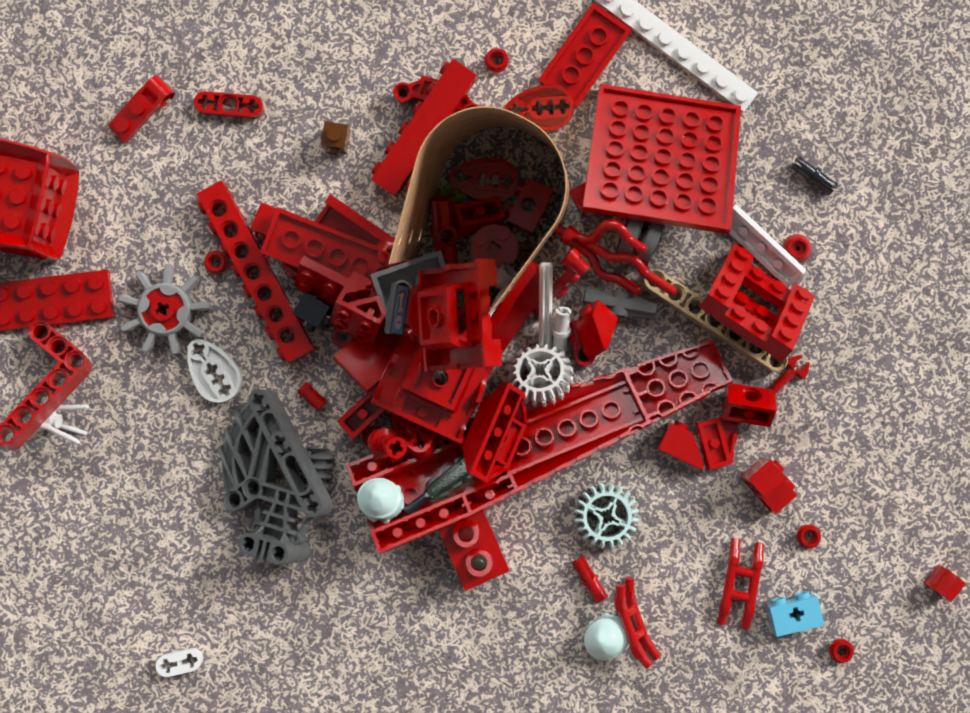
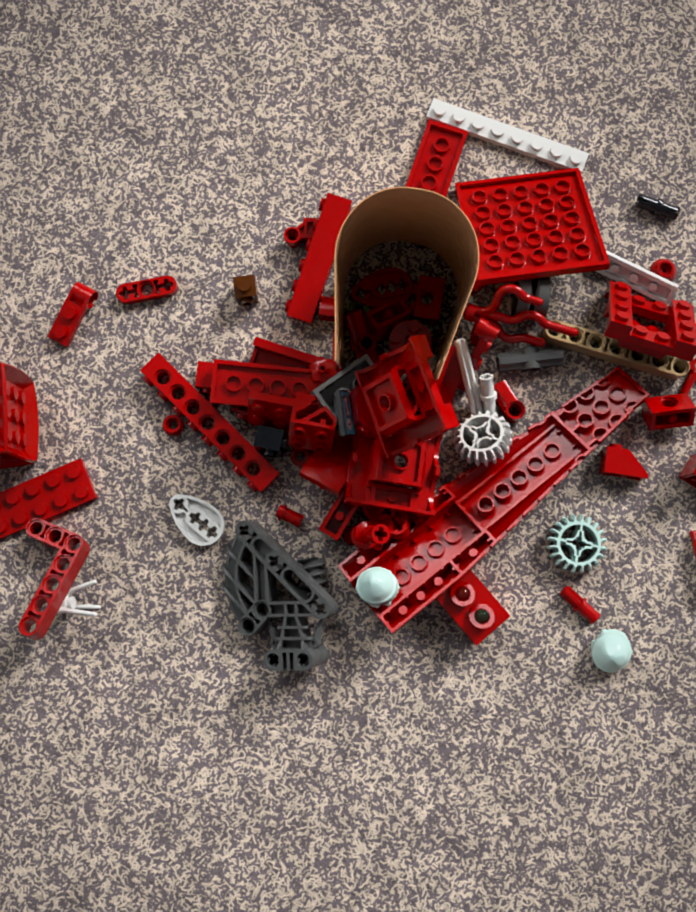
camera: 15 degrees left, 5 degrees down
(150, 307) = (152, 474): light grey gear -> none
(181, 667) = (242, 792): white beam -> none
(439, 486) = (443, 535): sword -> none
(495, 433) = (461, 497): red wedge -> none
(496, 52) = (359, 184): red plate -> none
(595, 327) = (518, 383): red slope -> none
(639, 638) = (643, 648): red piece -> none
(717, 441) = (650, 451): red wing -> none

